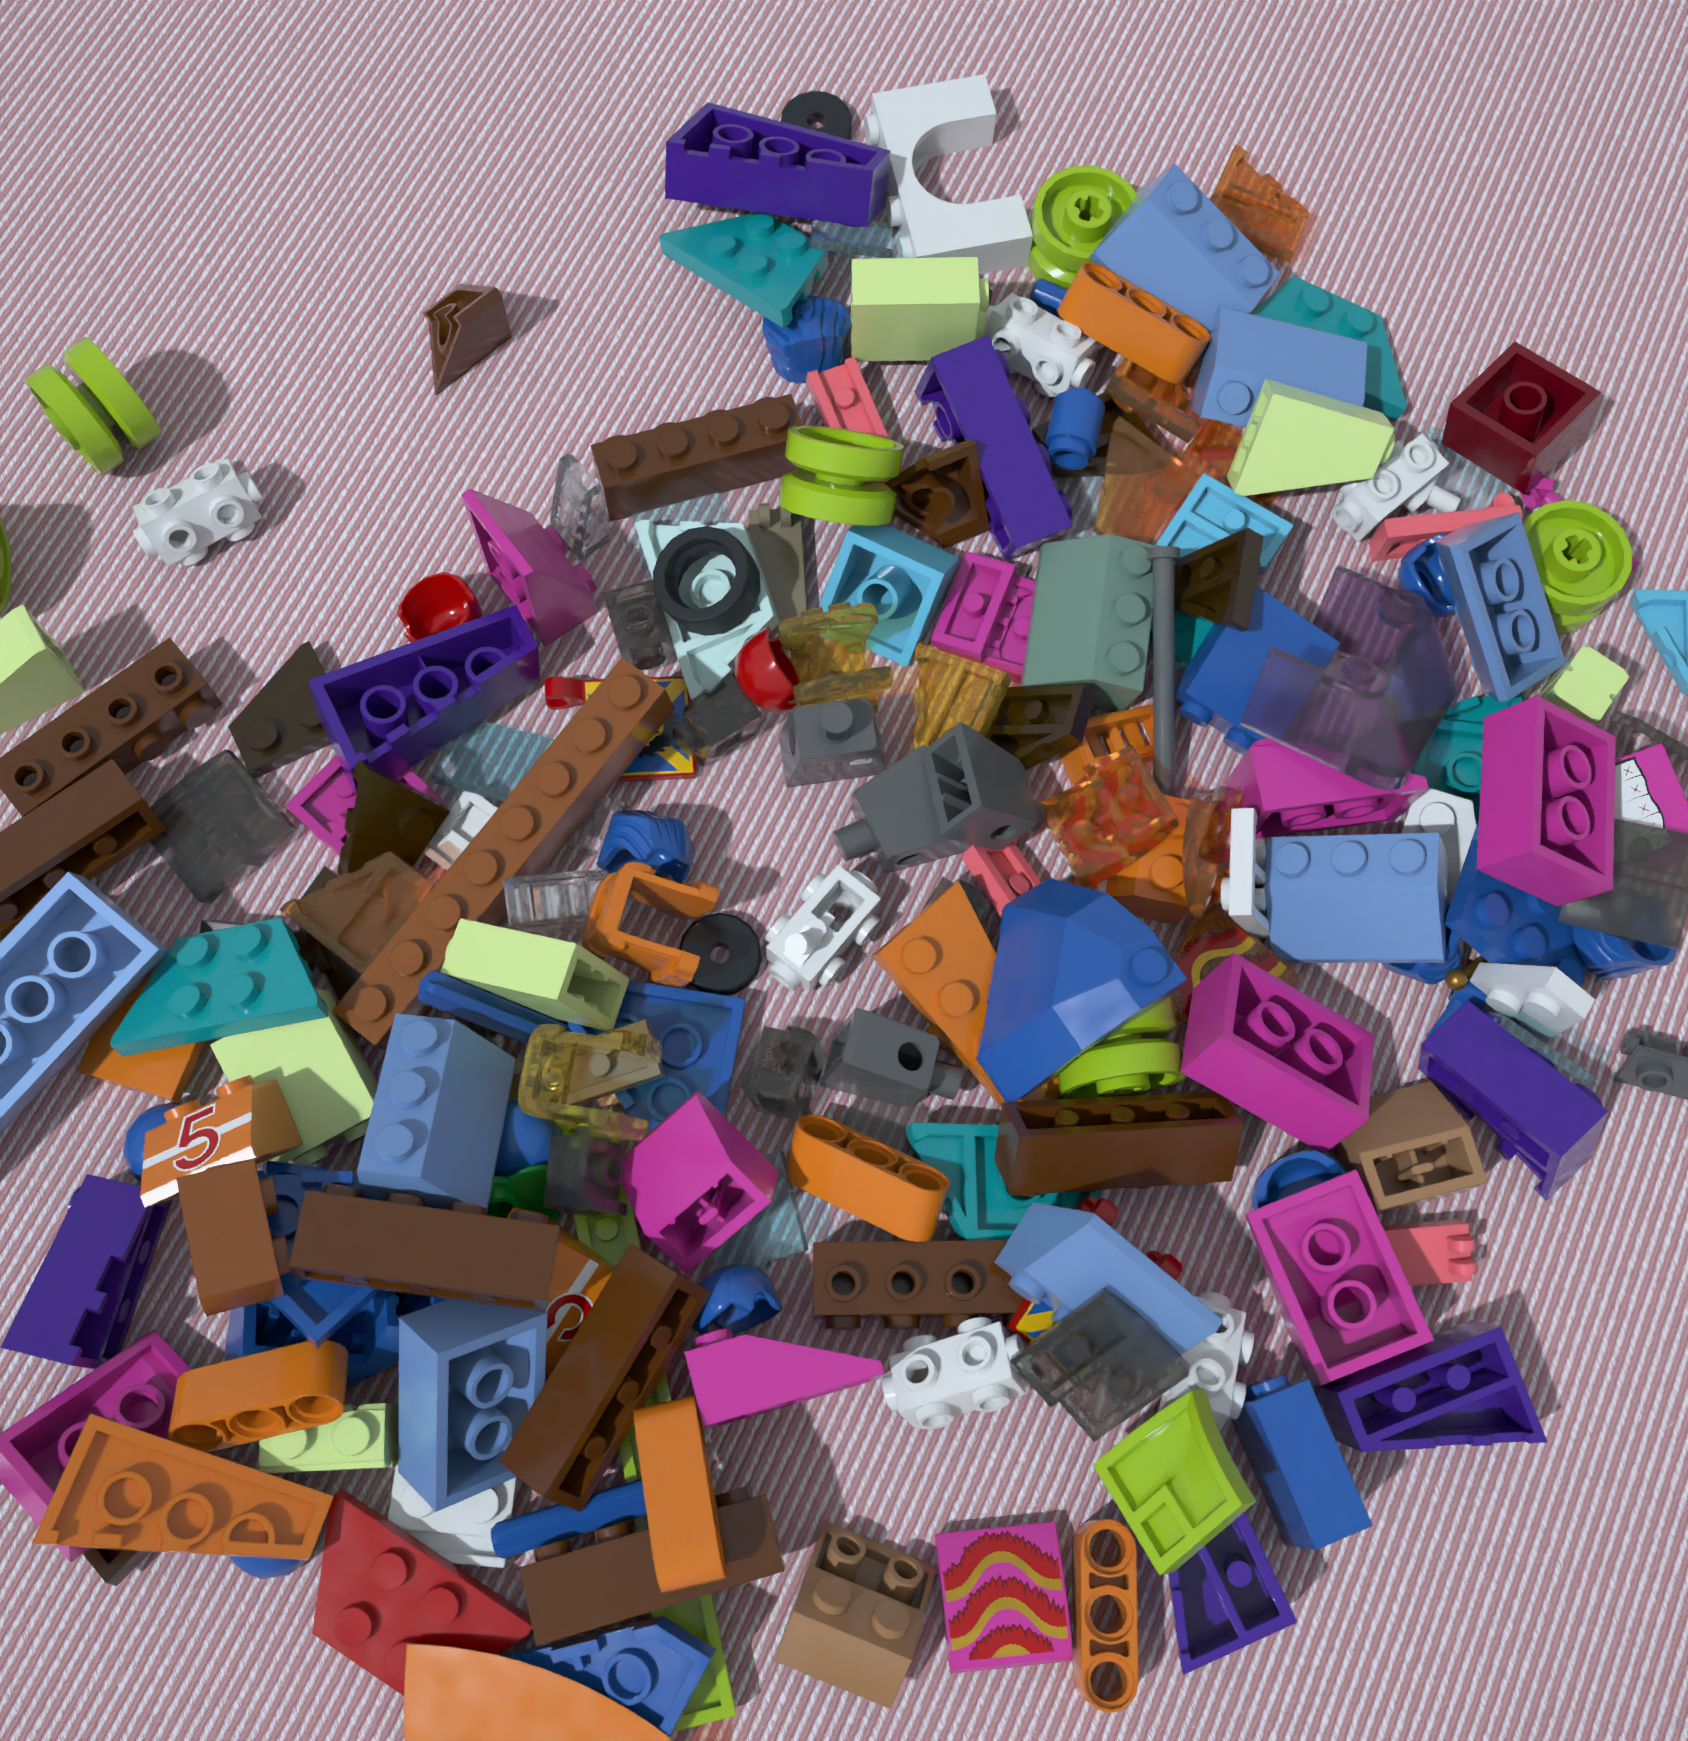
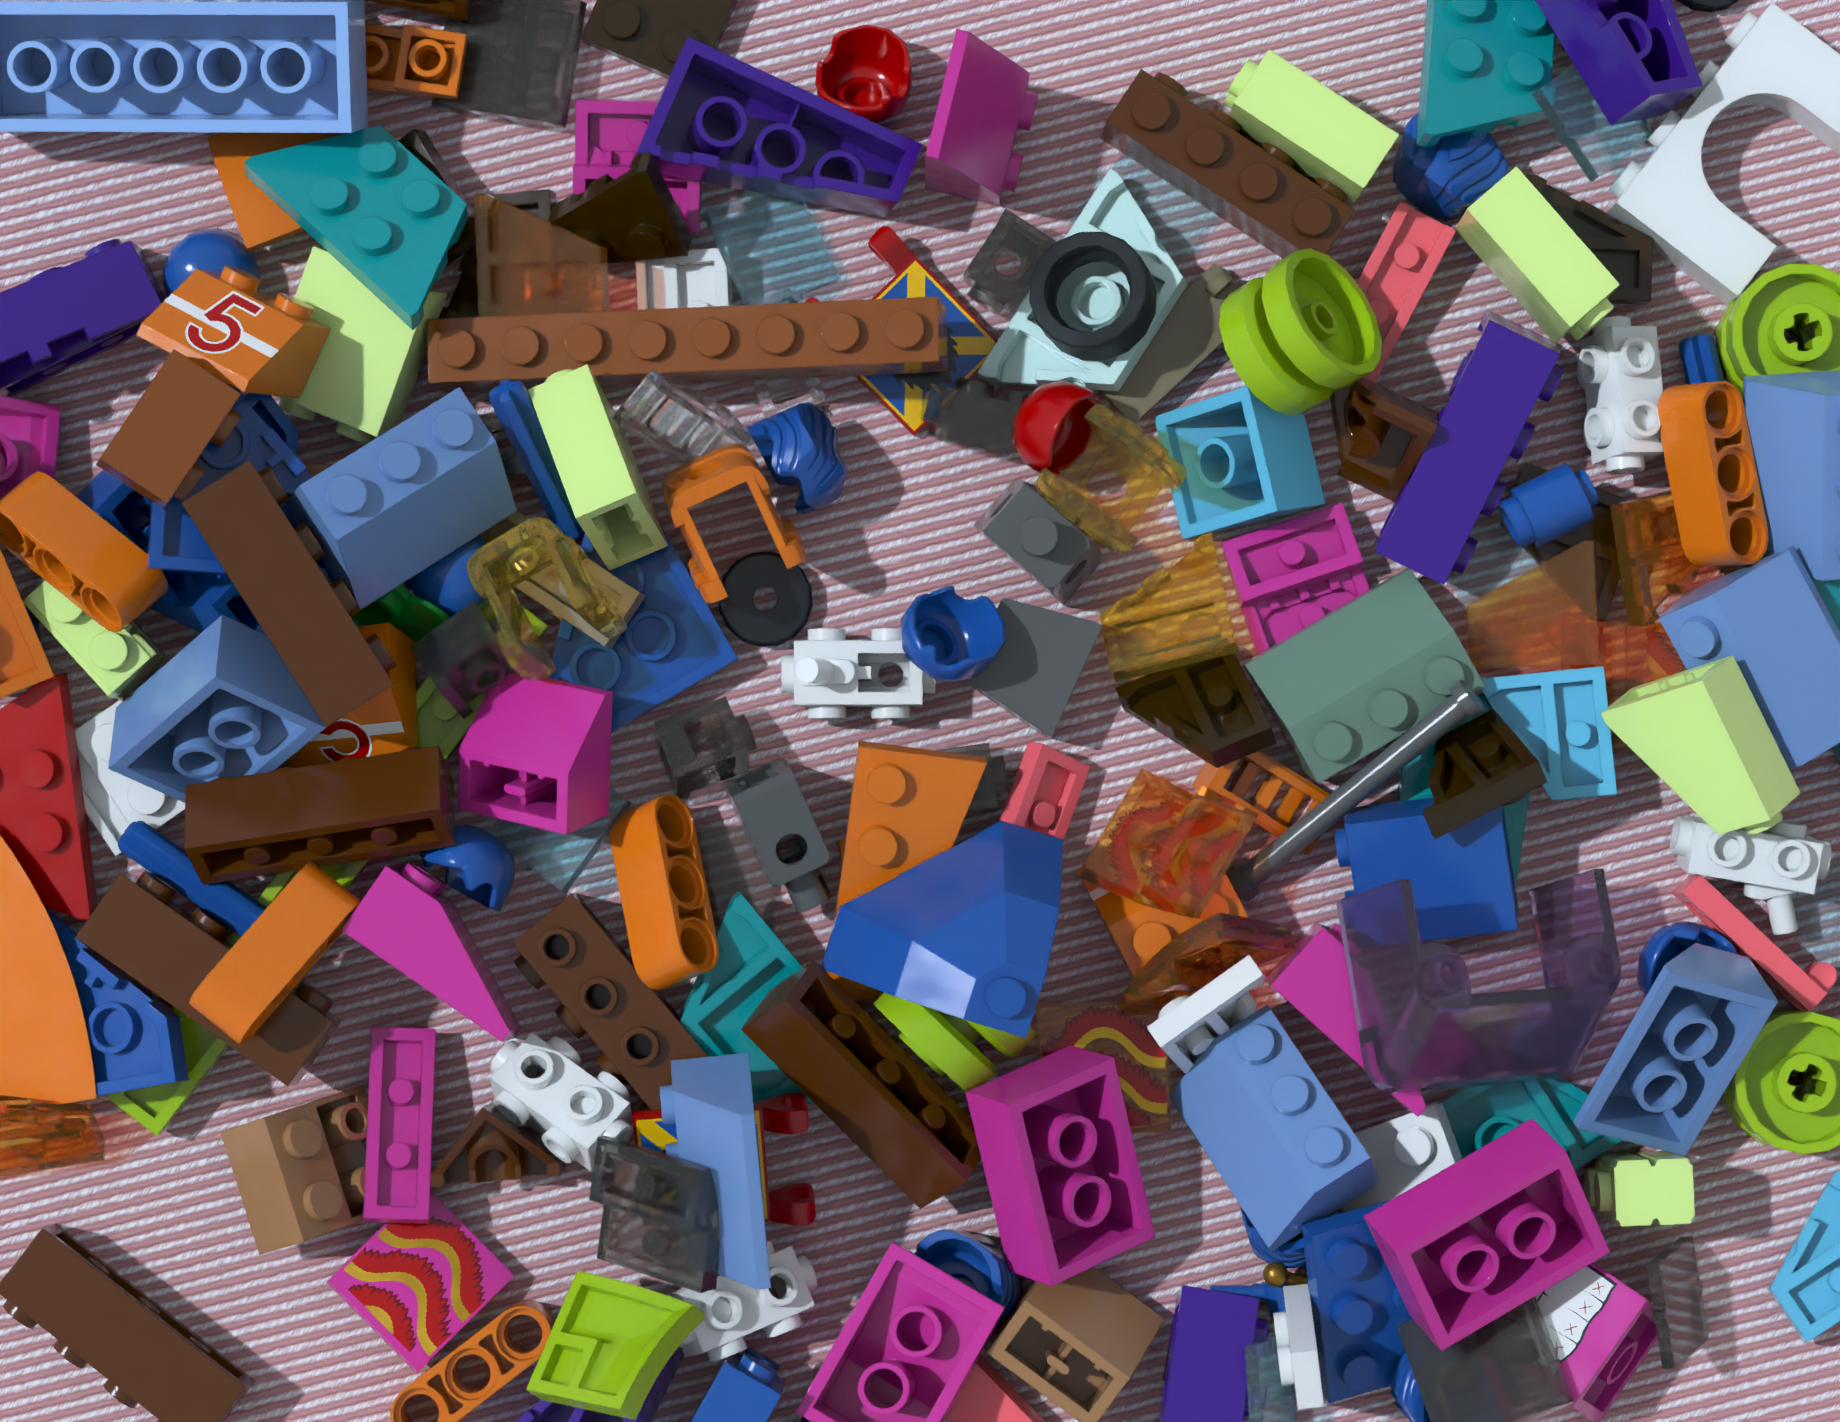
camera: 55 degrees right, 15 degrees up
(161, 885) = (414, 61): none -> orange slope
(578, 509) = (1069, 111): clear slope -> none
(714, 373) = (1309, 124): none -> yellowish green brick
(853, 837) = (951, 634): none -> blue hair
(878, 1515) = (399, 1125): none -> dark pink plate
(952, 1456) = (493, 1151): none -> reddish brown slope
(980, 790) = (1094, 713): dark grey torso -> none

